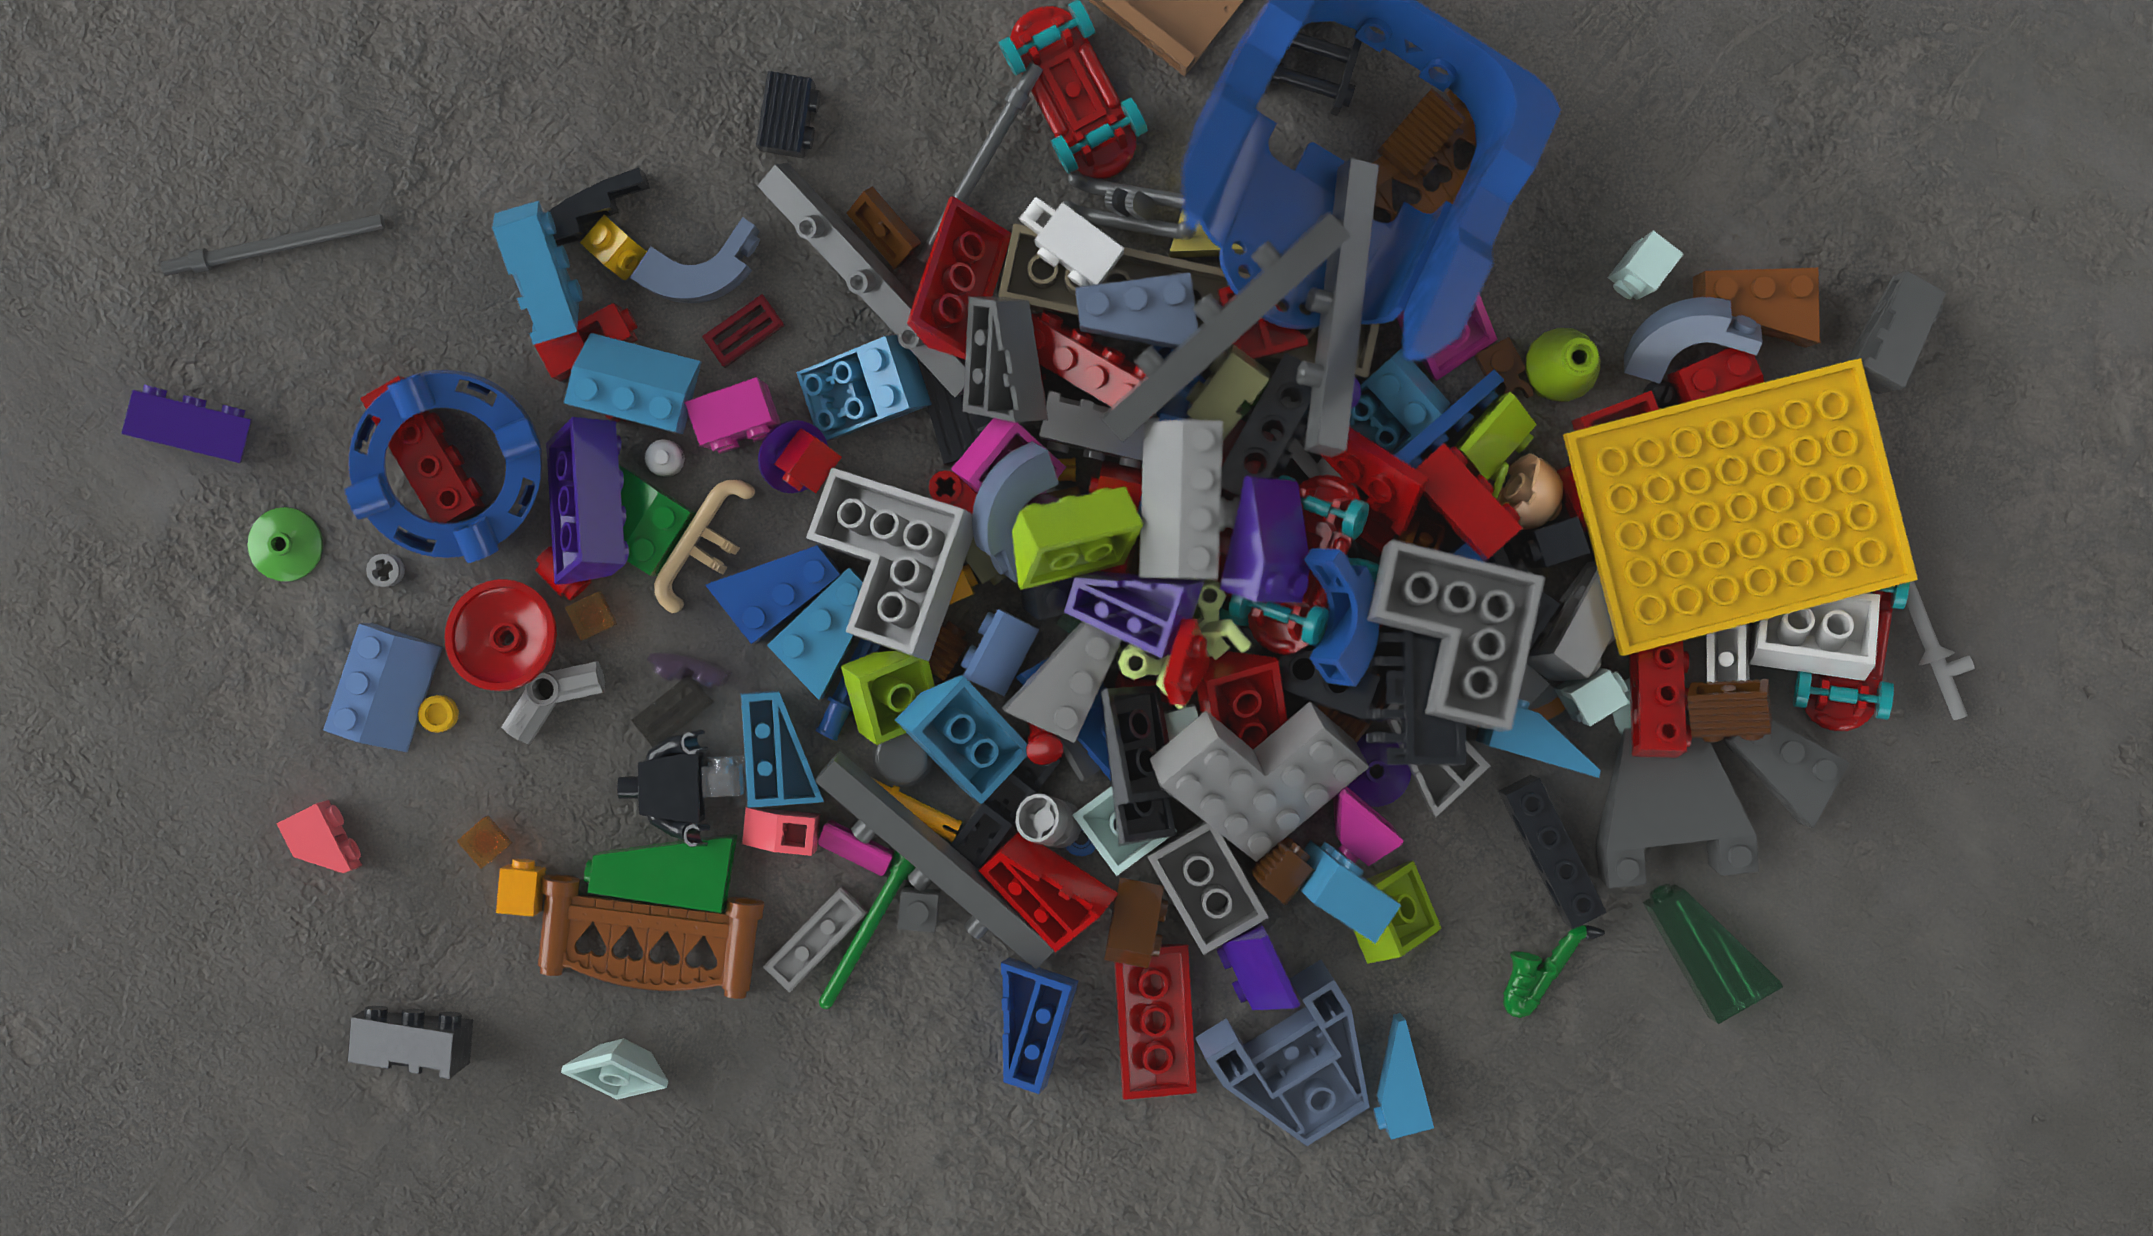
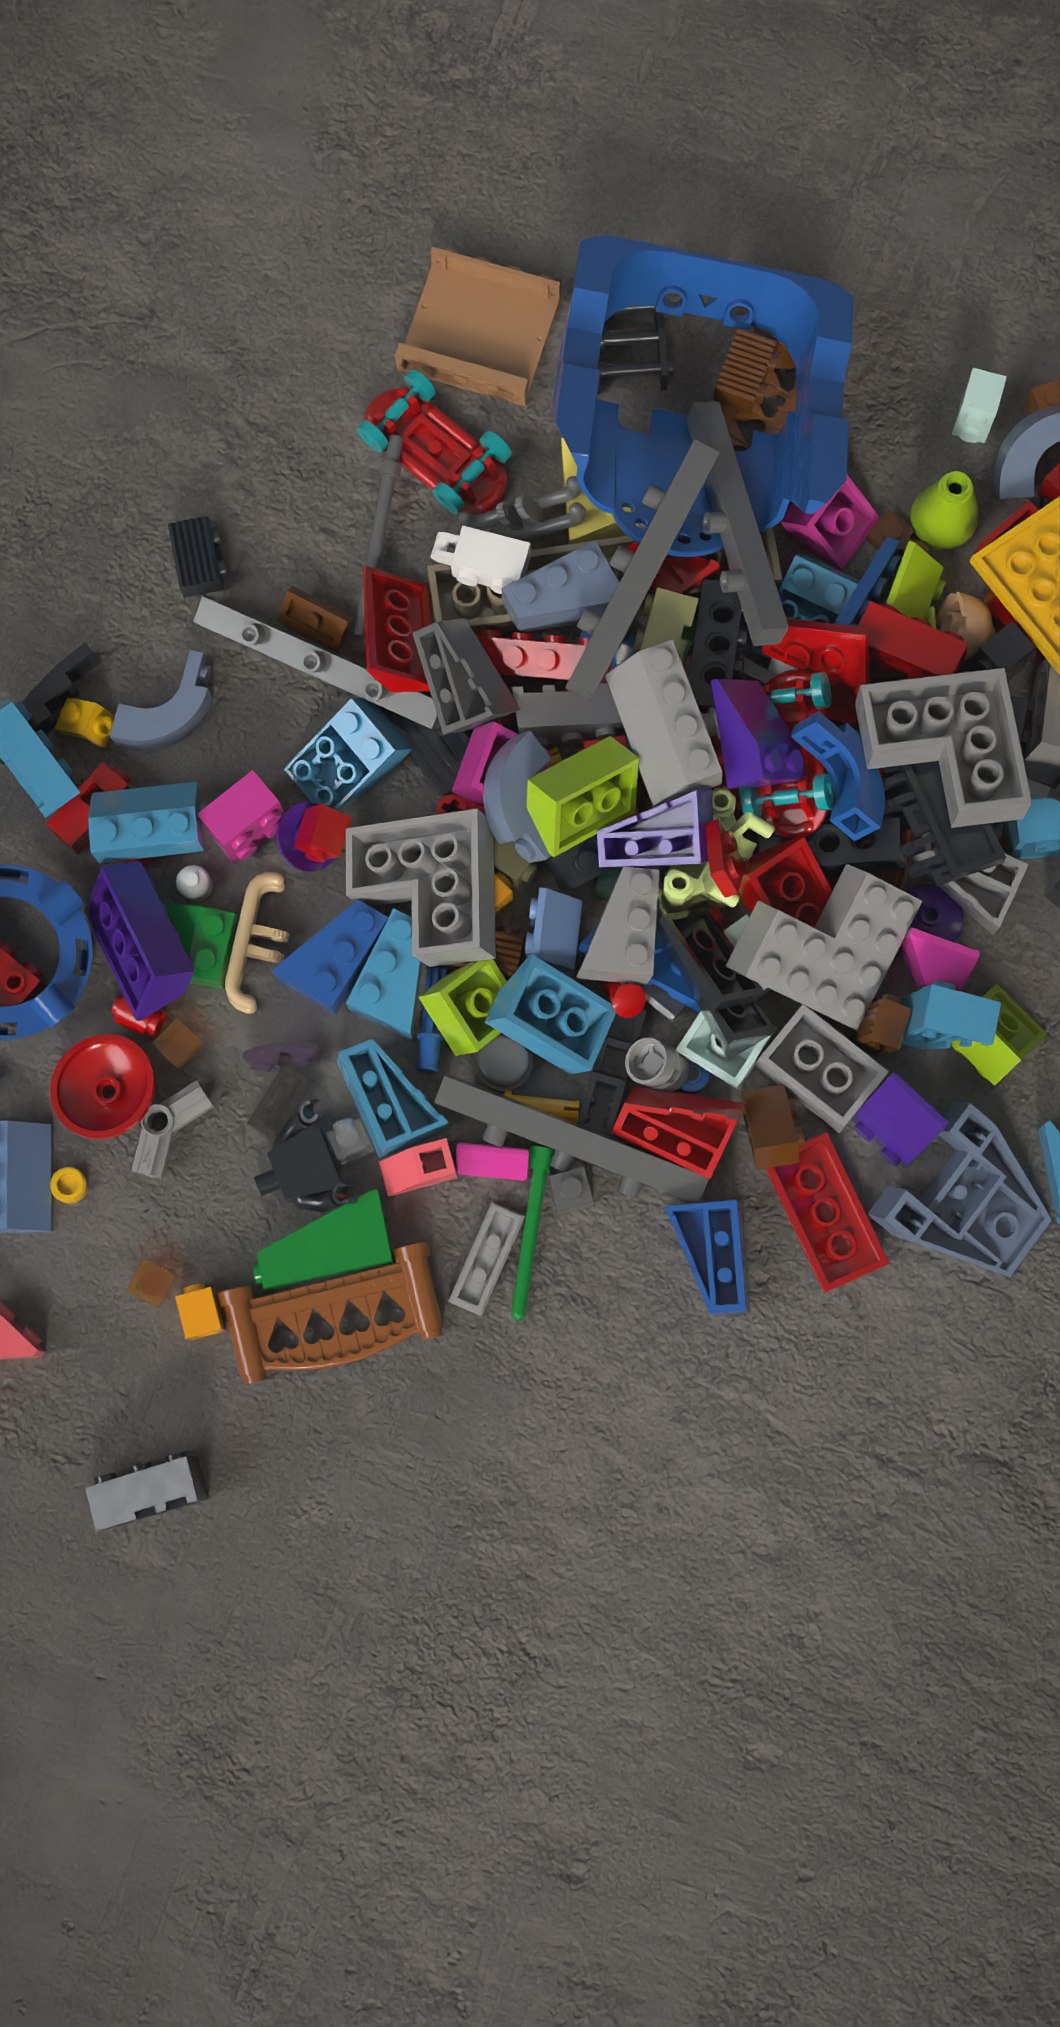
camera: 15 degrees left, 10 degrees down
(617, 1069) = (349, 1446): light aqua slope -> none
(750, 343) = (234, 759): dark red tile -> none

